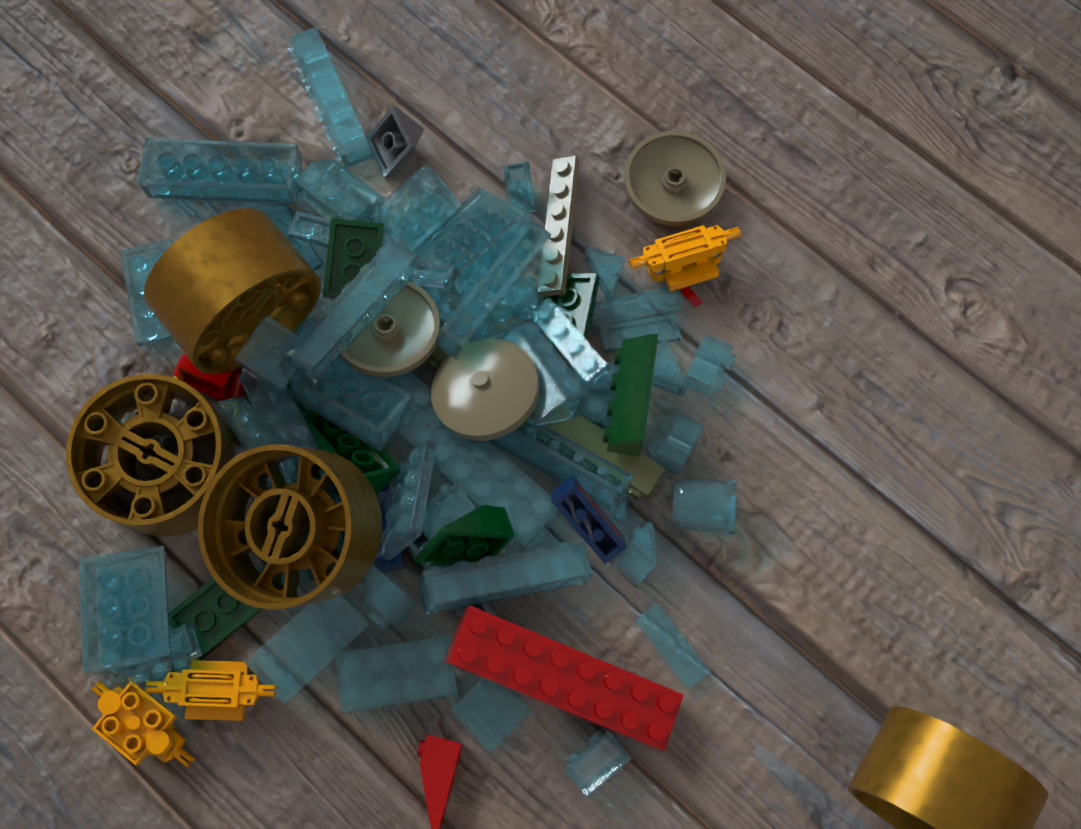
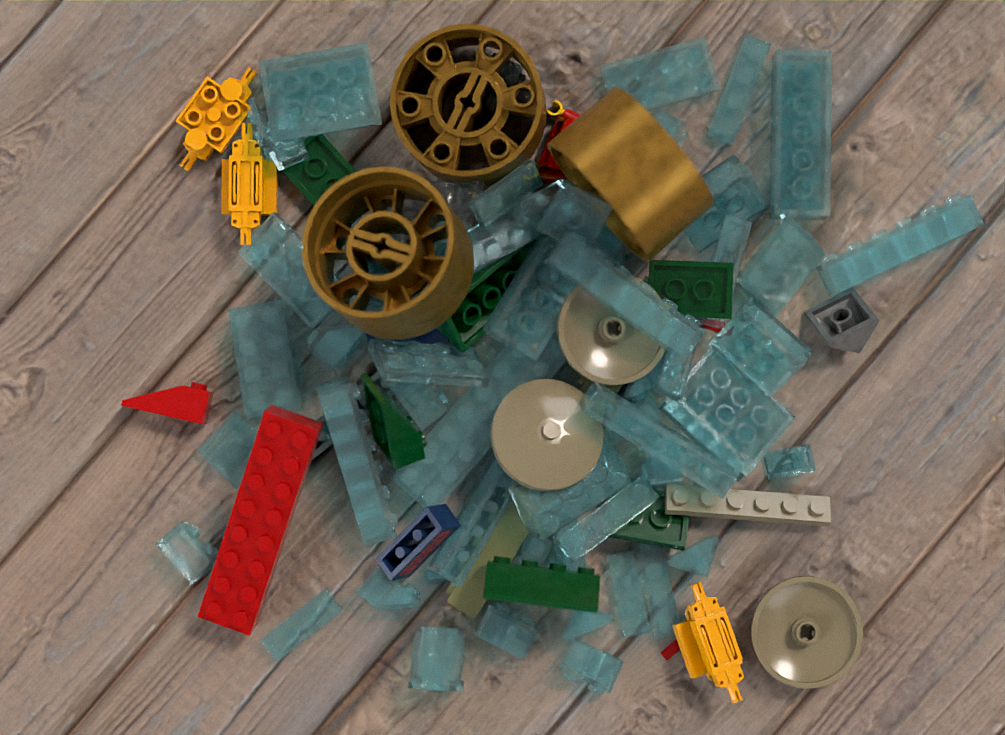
camera: 90 degrees right, 15 degrees up
(159, 219) = (738, 90): none -> clear light blue plate

